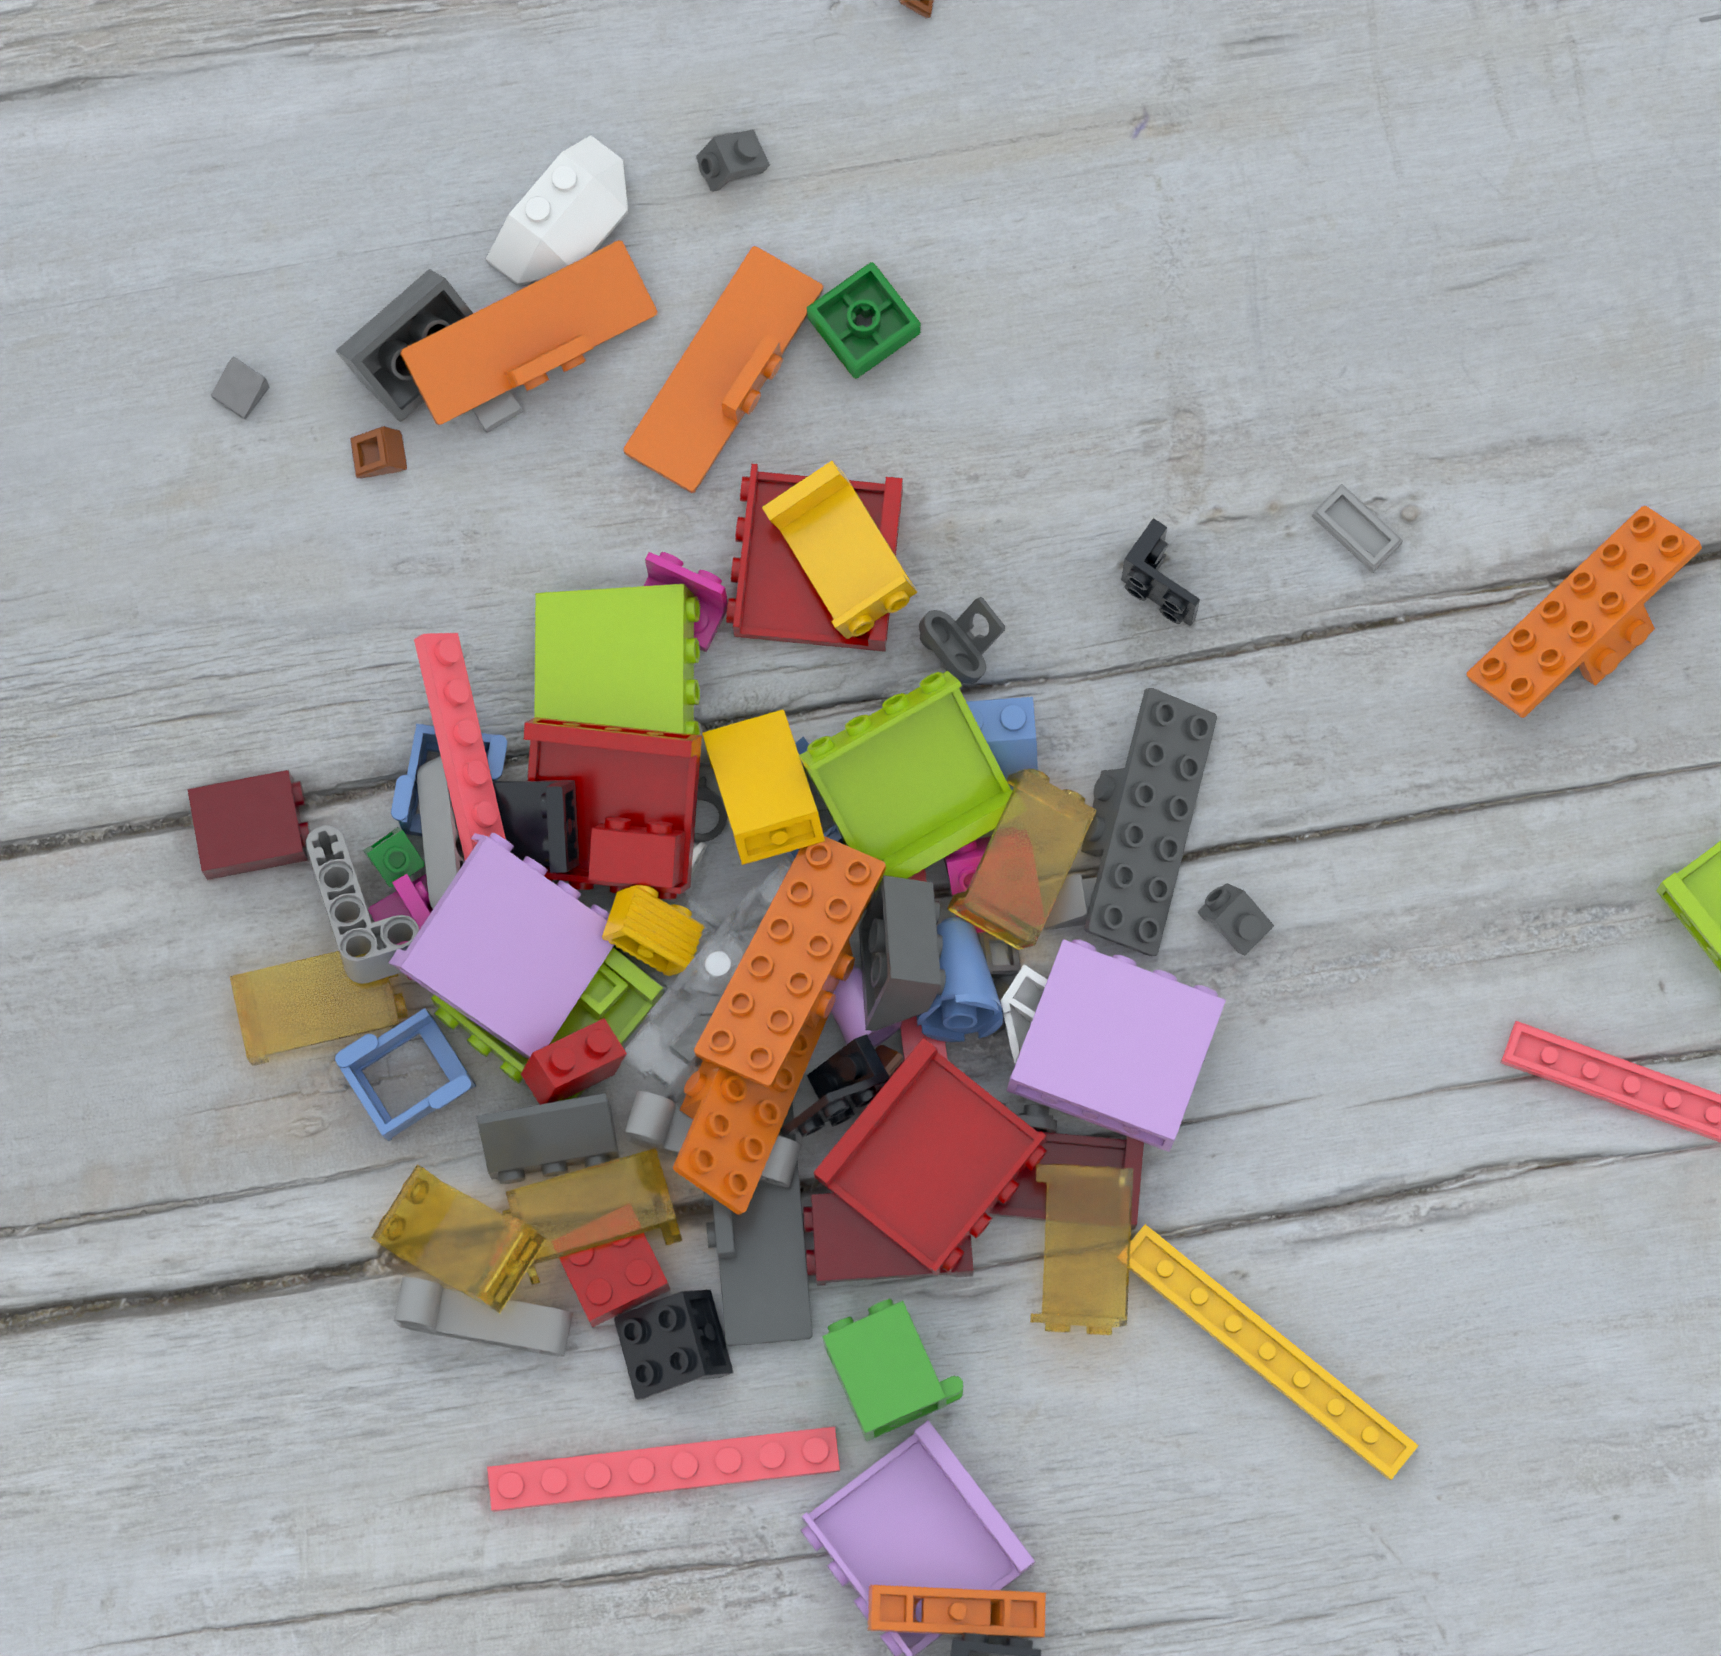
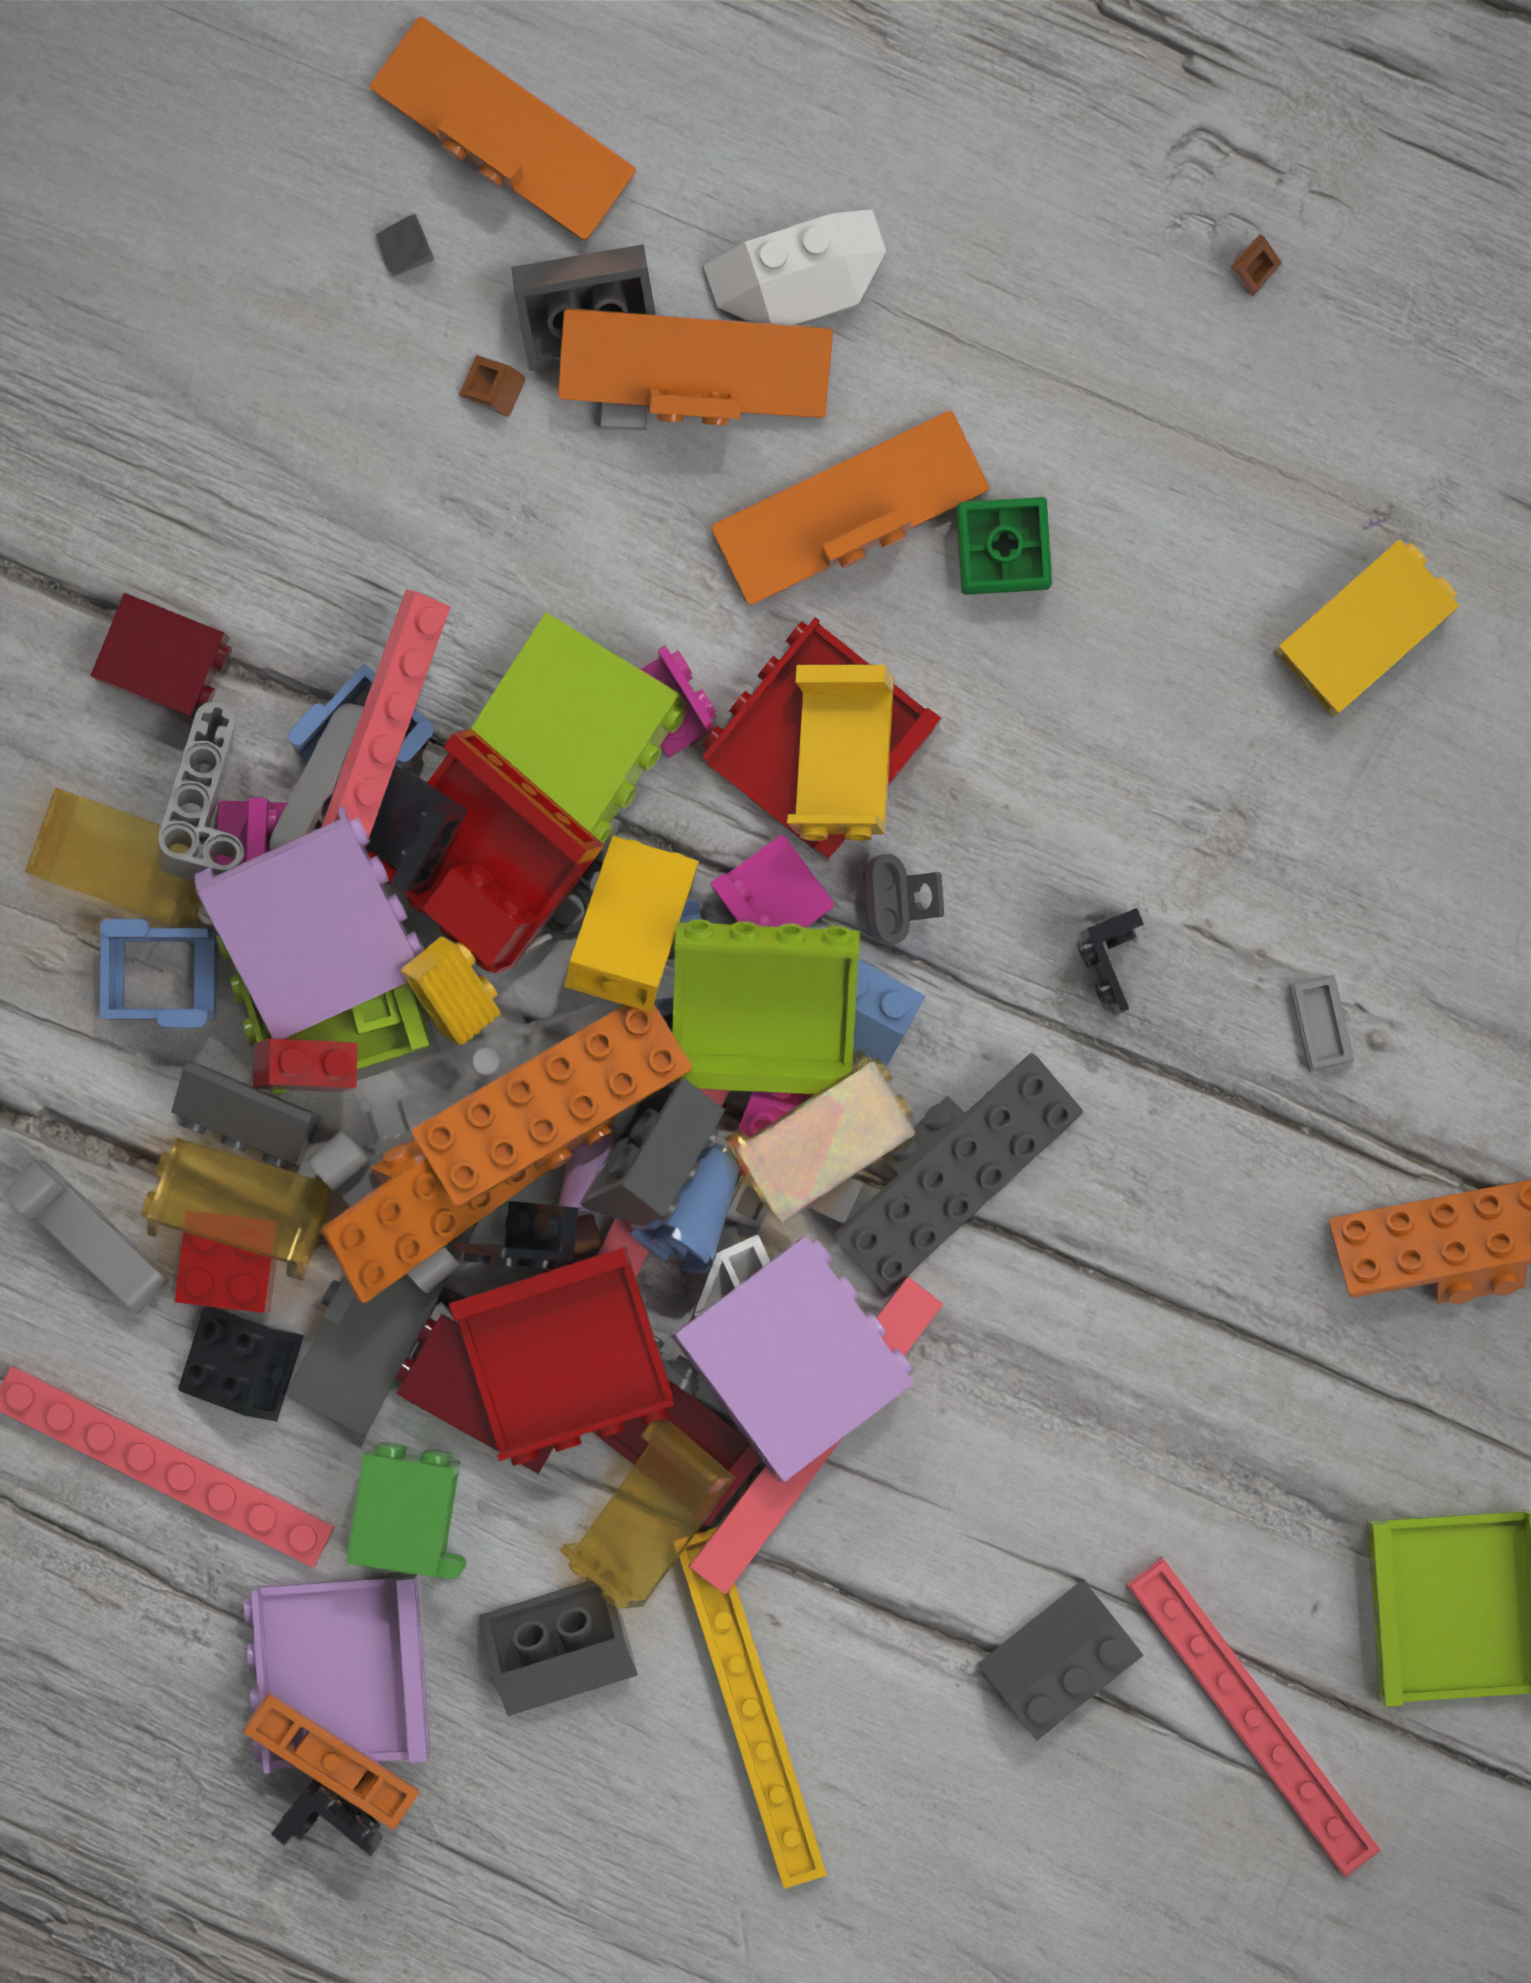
camera: 30 degrees right, 10 degrees up
(259, 253) = (502, 129): none -> orange bracket
(394, 856) = (269, 770): green bracket -> none
(458, 1239) = (107, 1155): clear yellow panel -> none
(731, 158) = (984, 315): dark grey bracket -> none
(851, 690) = (773, 888): none -> dark pink bracket
(1080, 1403) = (556, 1647): none -> dark grey slope
(1172, 1172) = (766, 1499): none -> coral tile
(1187, 205) = (1368, 627): none -> yellow panel
(1236, 917) = (977, 1305): dark grey bracket -> none
(1488, 1152) = (1060, 1659): none -> dark grey slope

